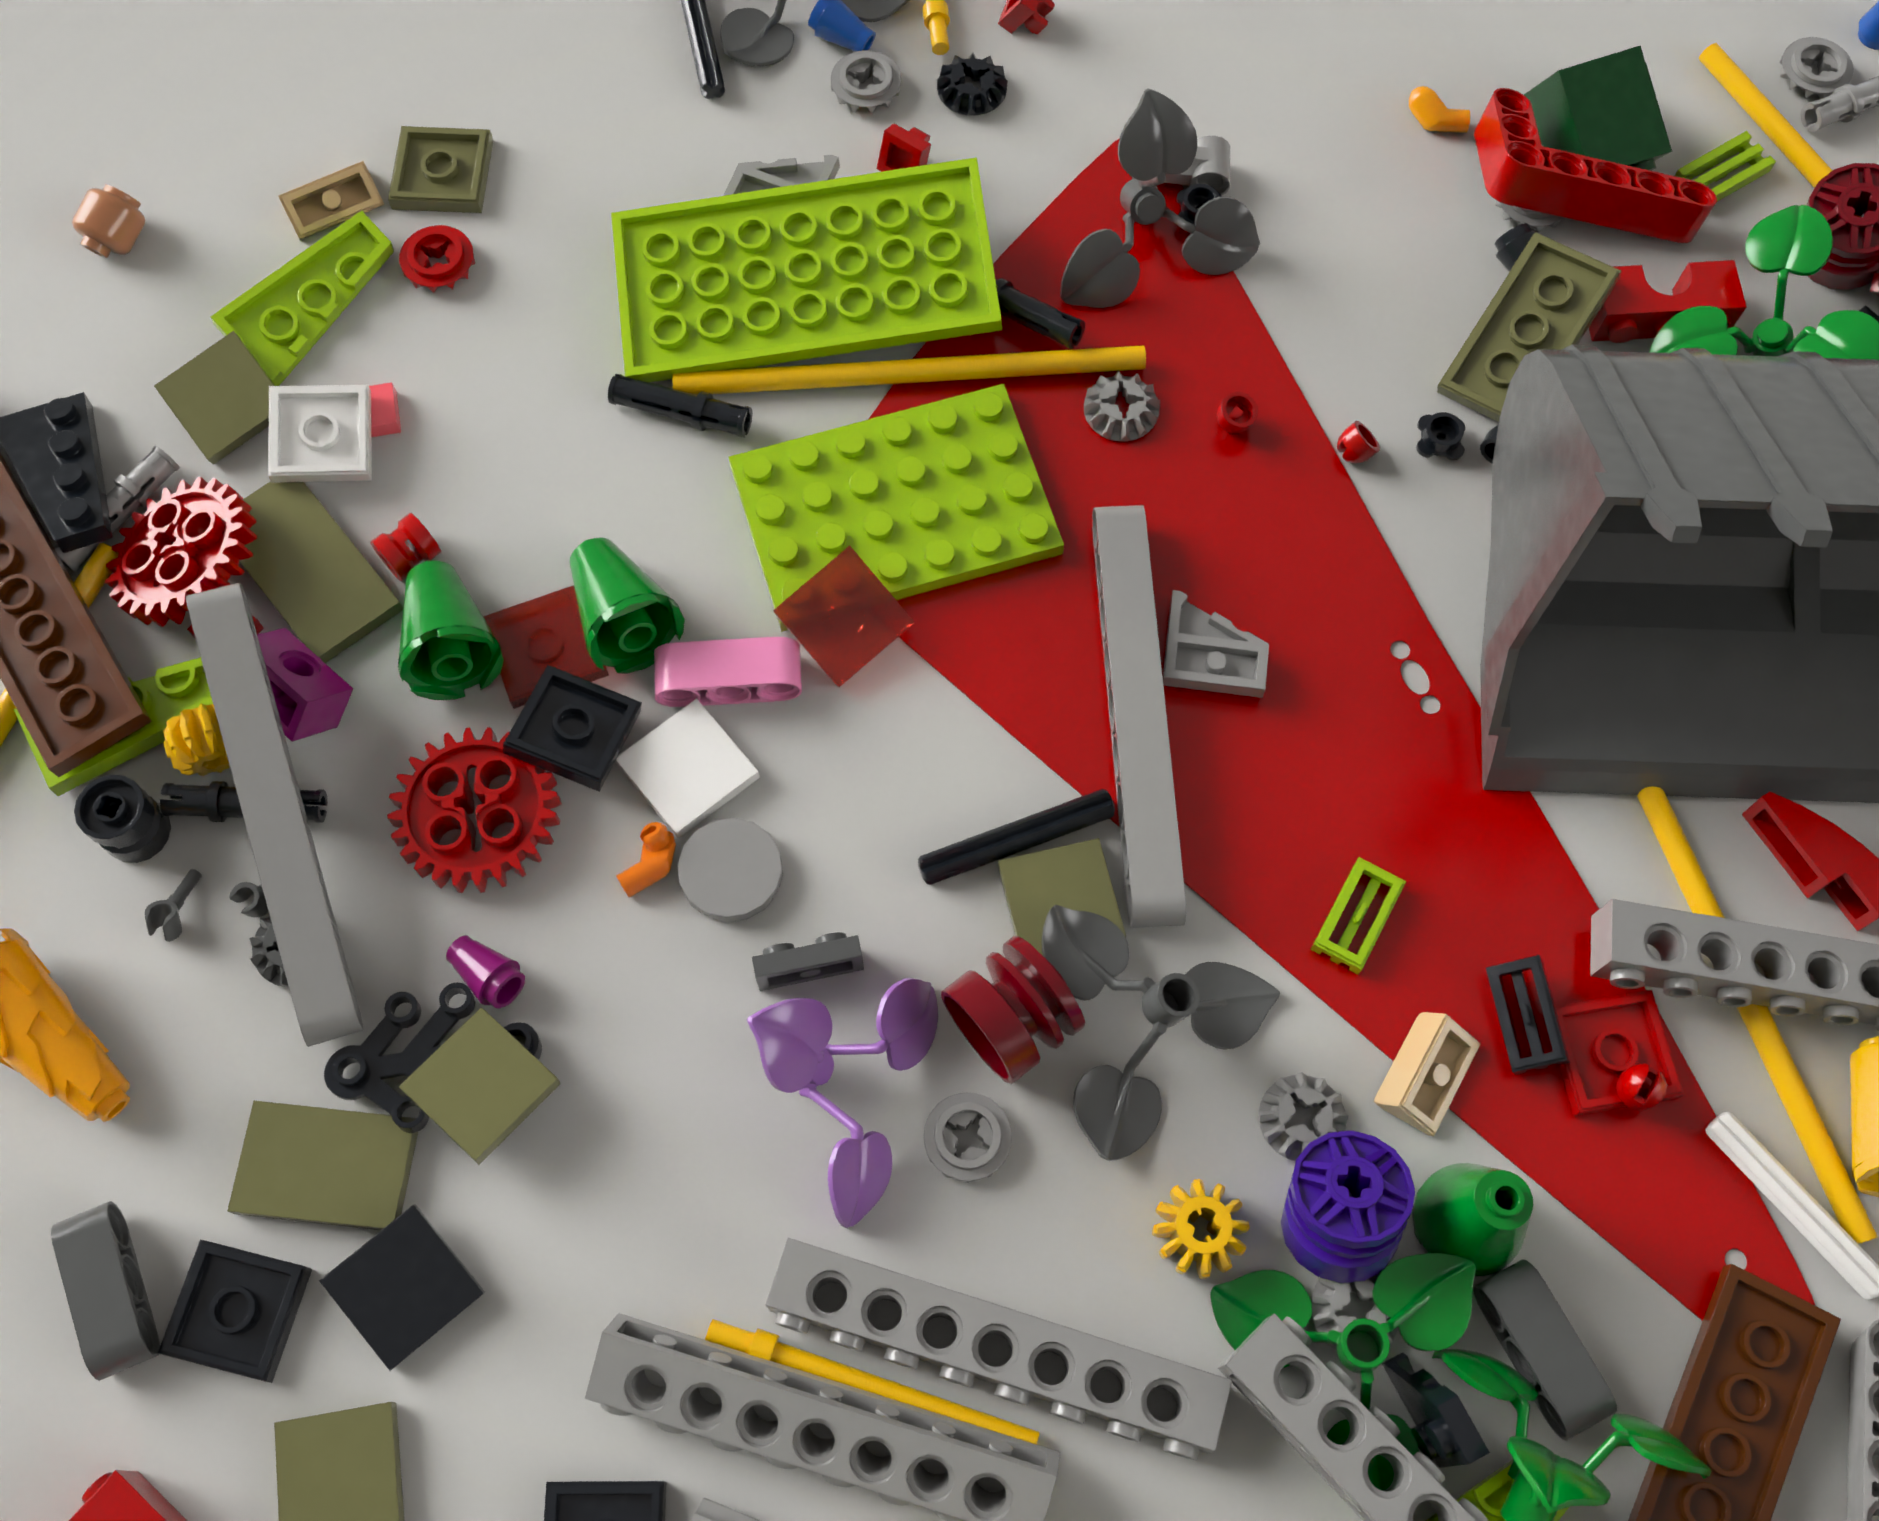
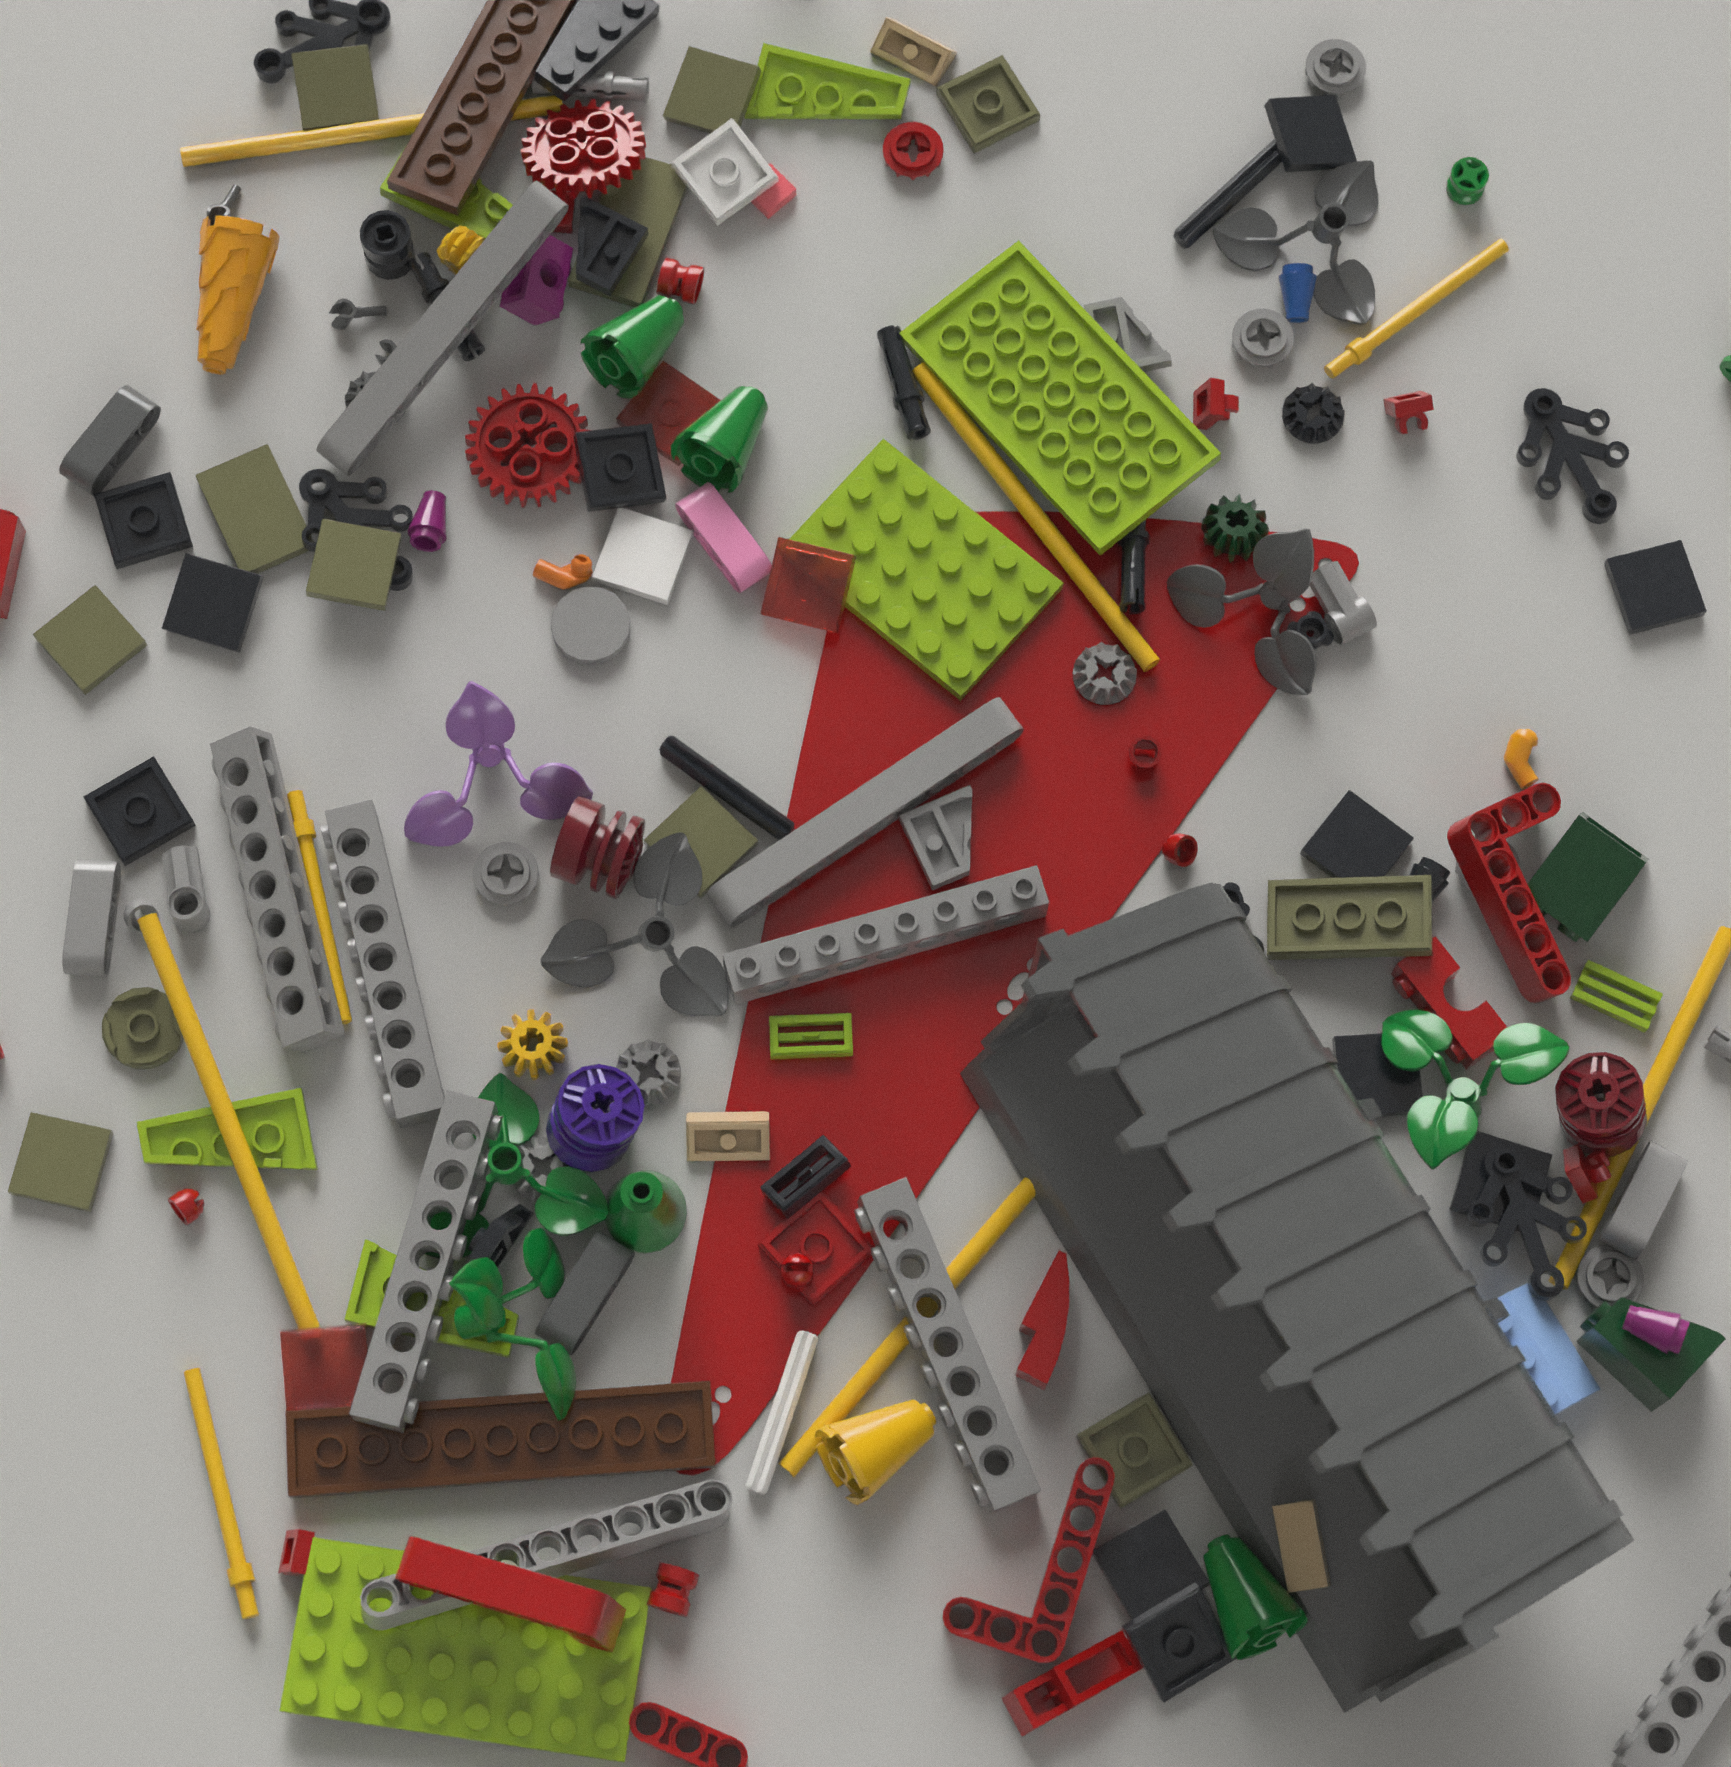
camera: 55 degrees right, 5 degrees up
(307, 593) = (605, 245): none -> black wing
(786, 965) = (547, 699): dark grey plate -> none
(1050, 205) = (1234, 527): none -> dark green gear
(1293, 775) = (885, 935): none -> light grey brick
(1440, 291) = (1356, 841): none -> black tile

